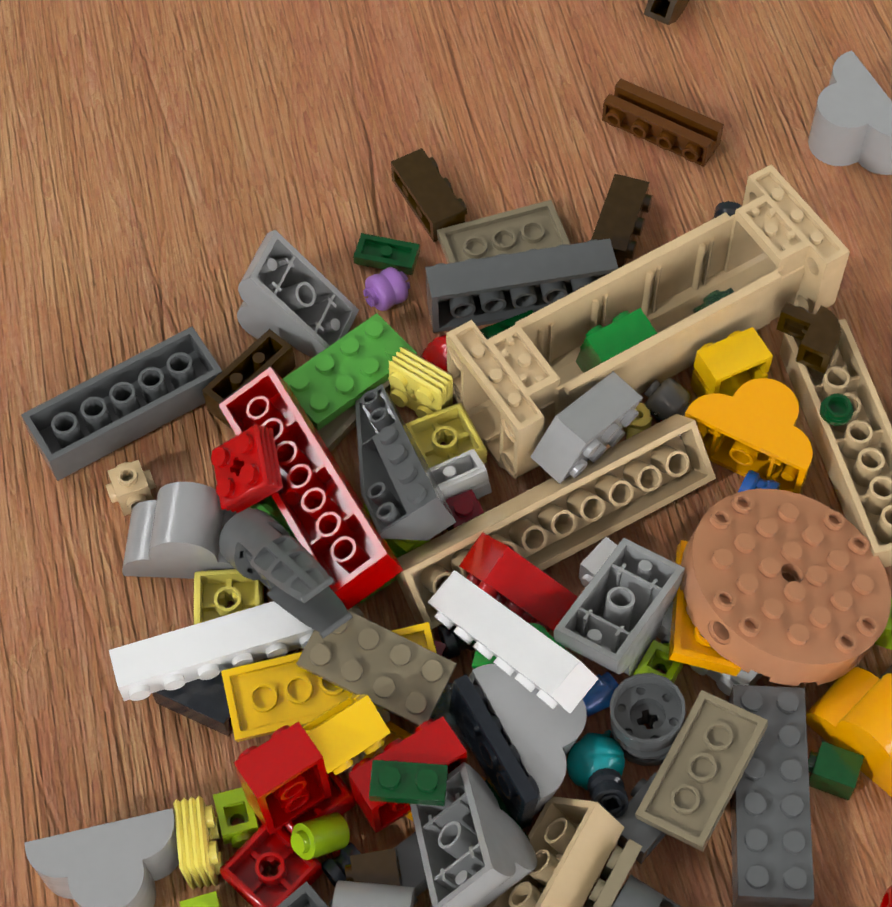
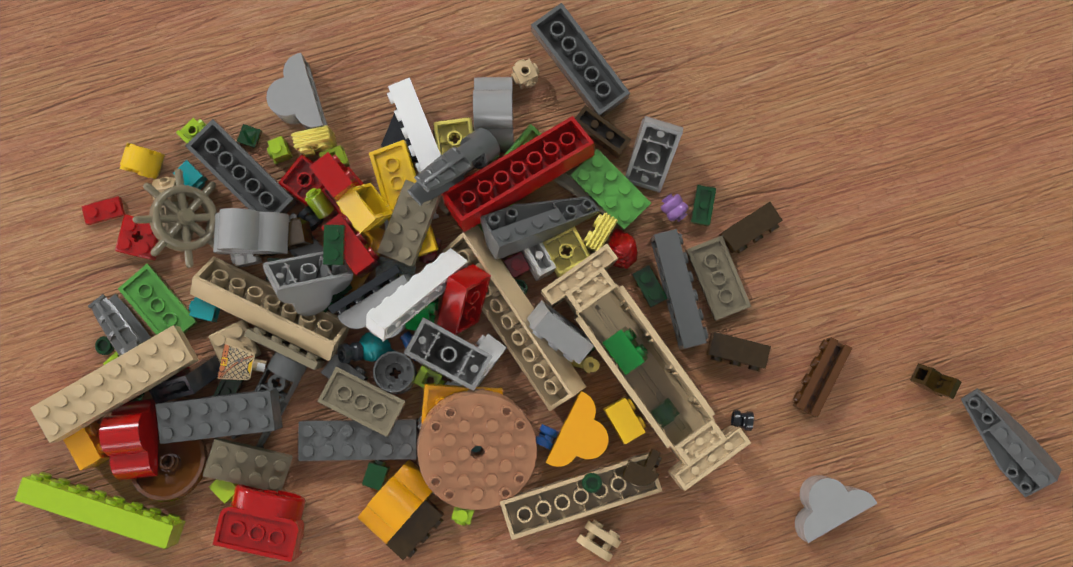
camera: 85 degrees right, 25 degrees up
(246, 469) = (522, 137): red brick -> none
(667, 399) = (602, 382): dark grey head -> none

